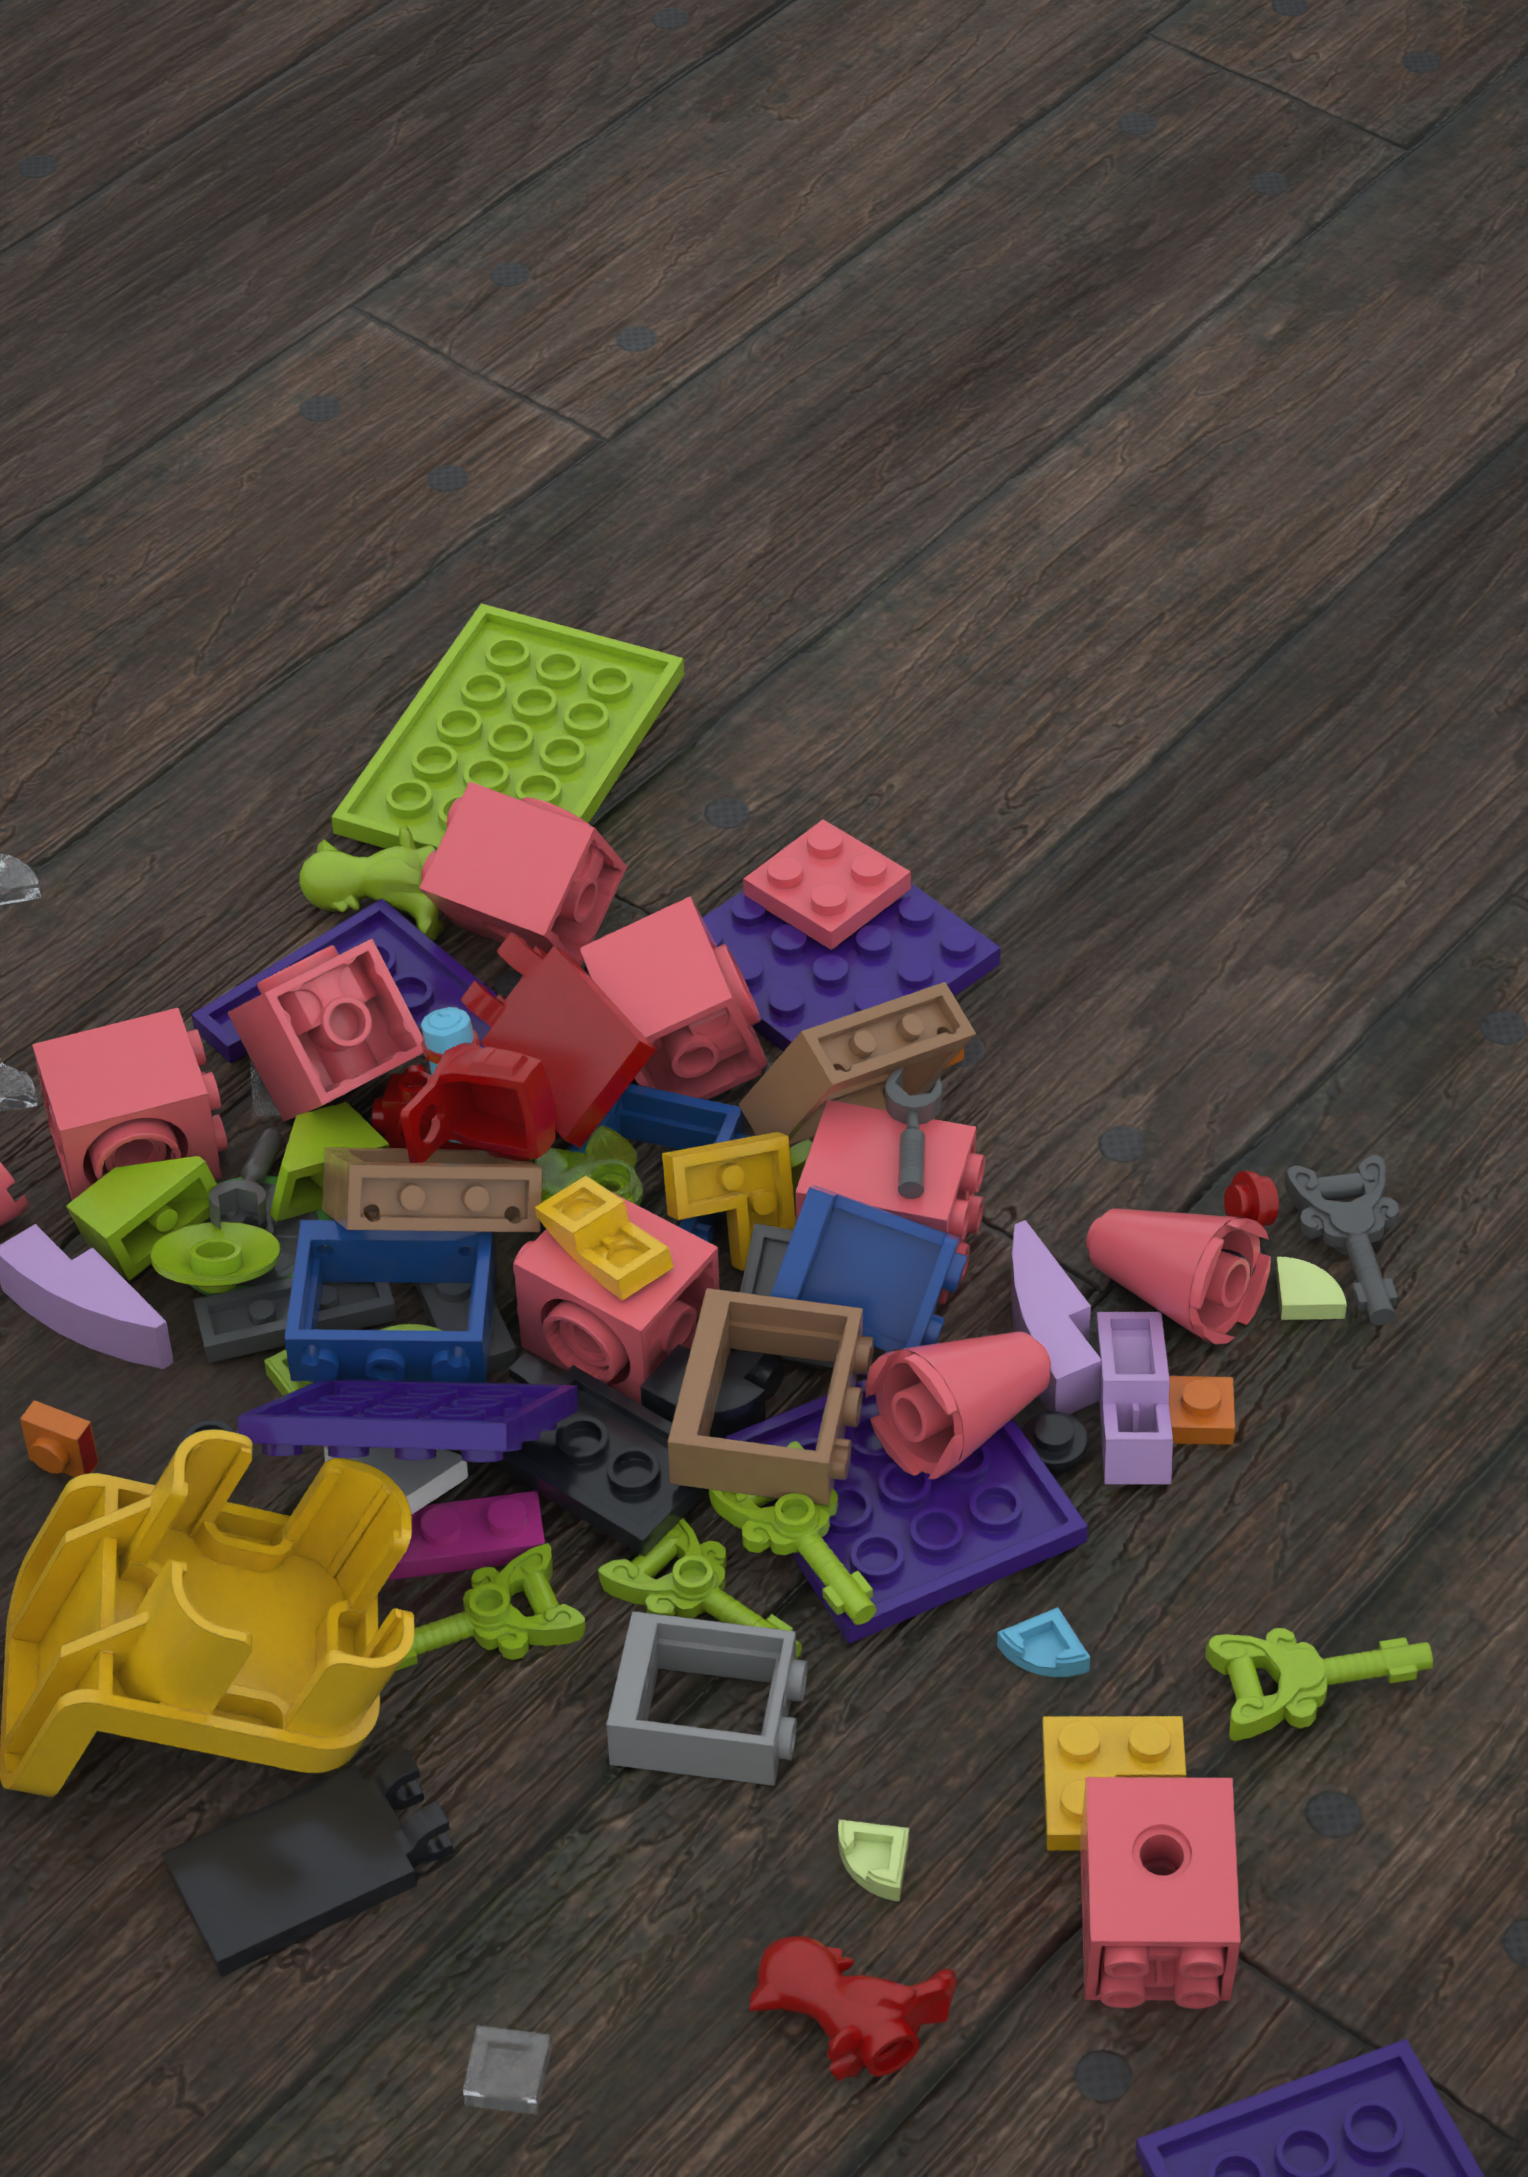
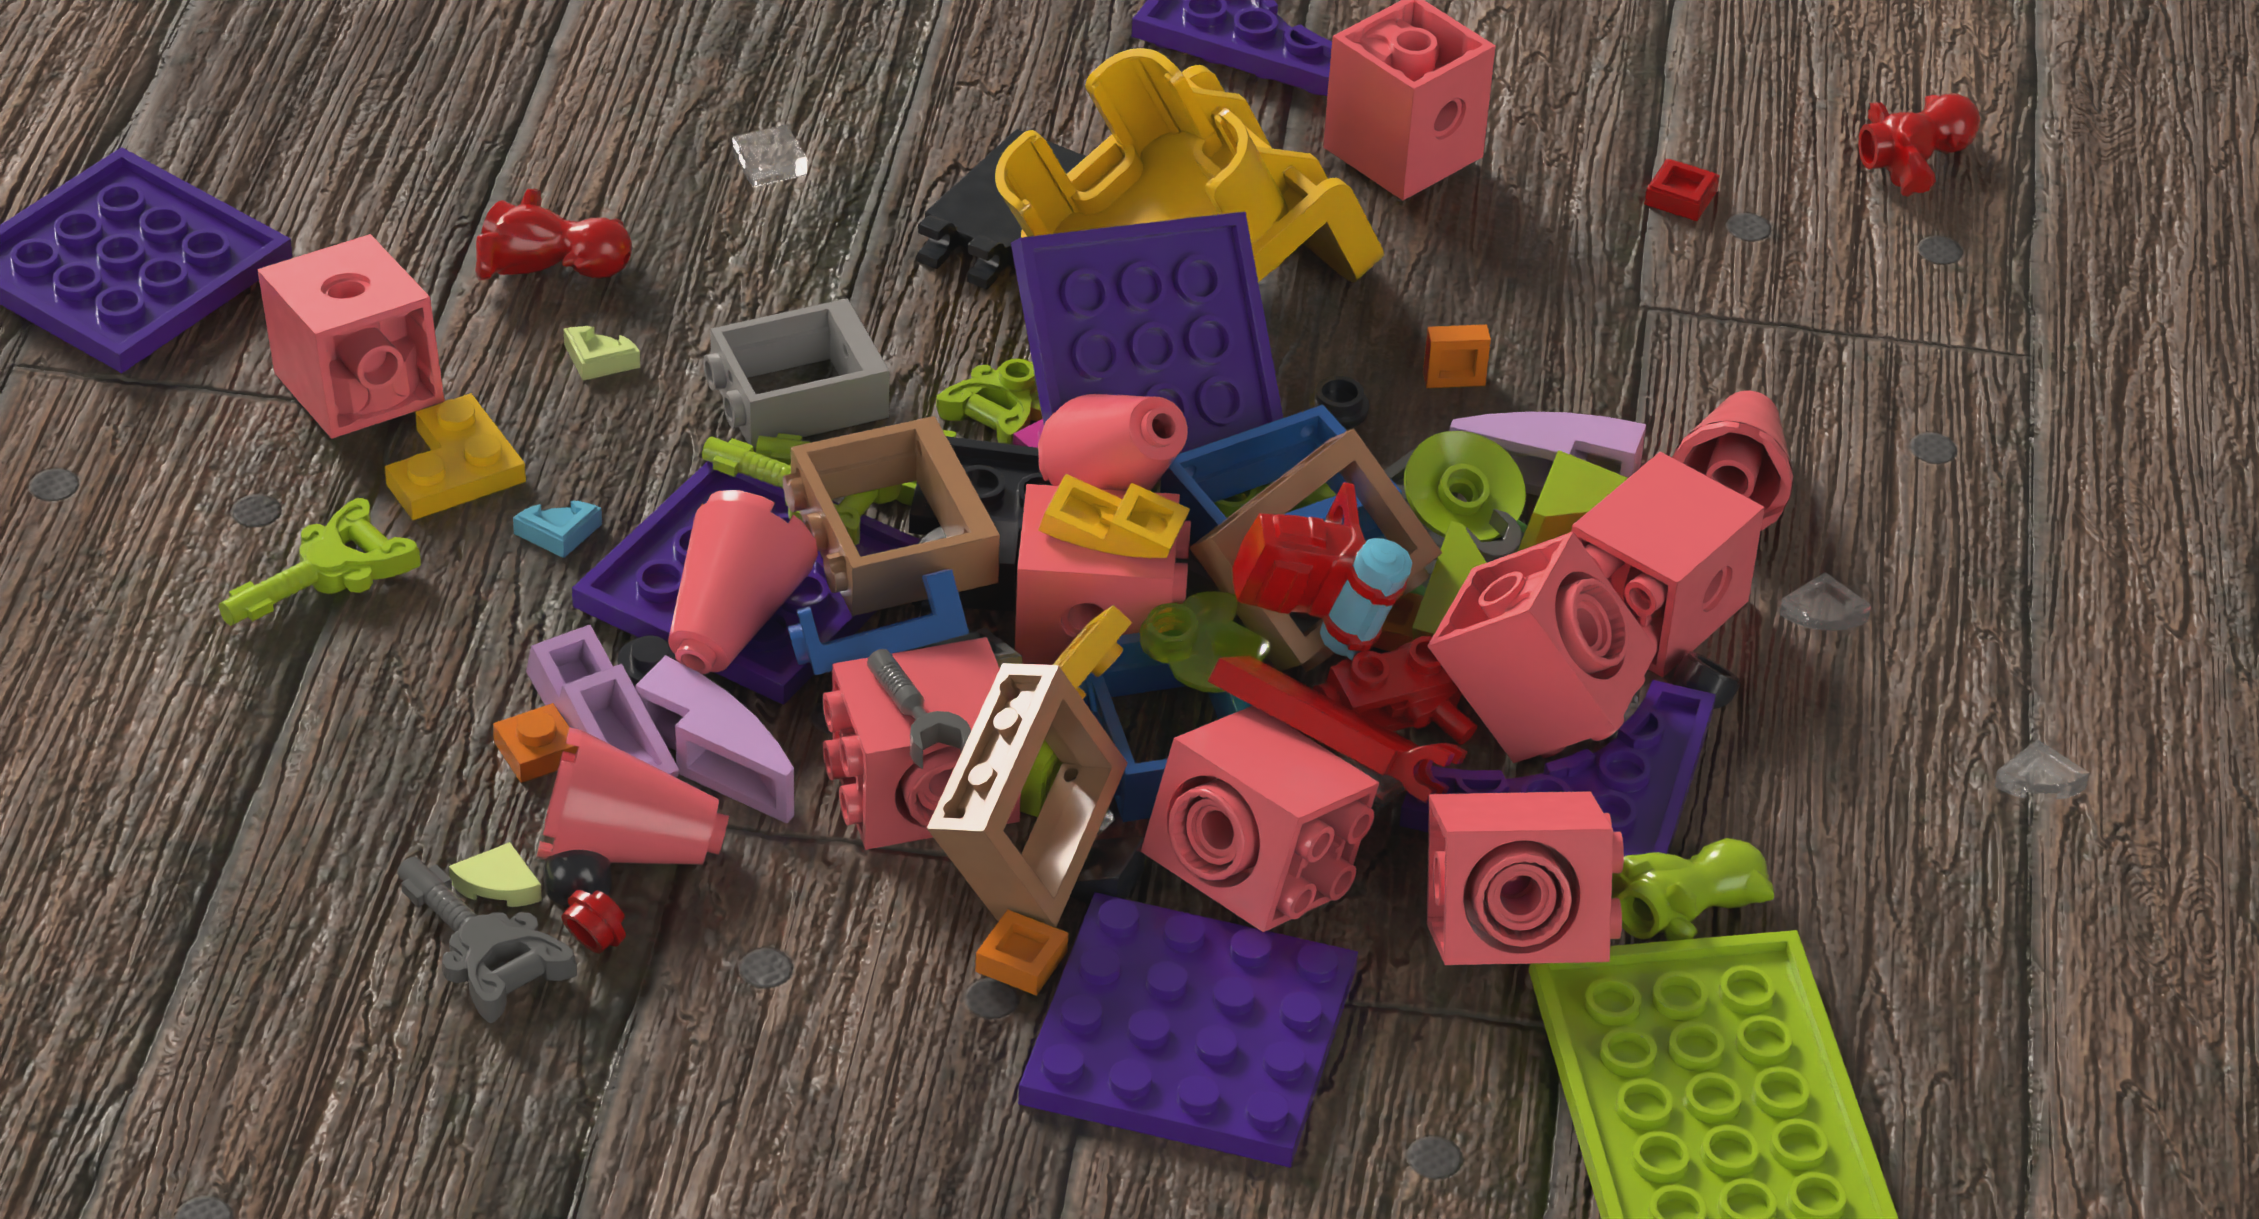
camera: 145 degrees right, 5 degrees down
(530, 1313) = (1112, 440): none -> coral cone
(827, 884) = (1237, 1048): coral plate -> none

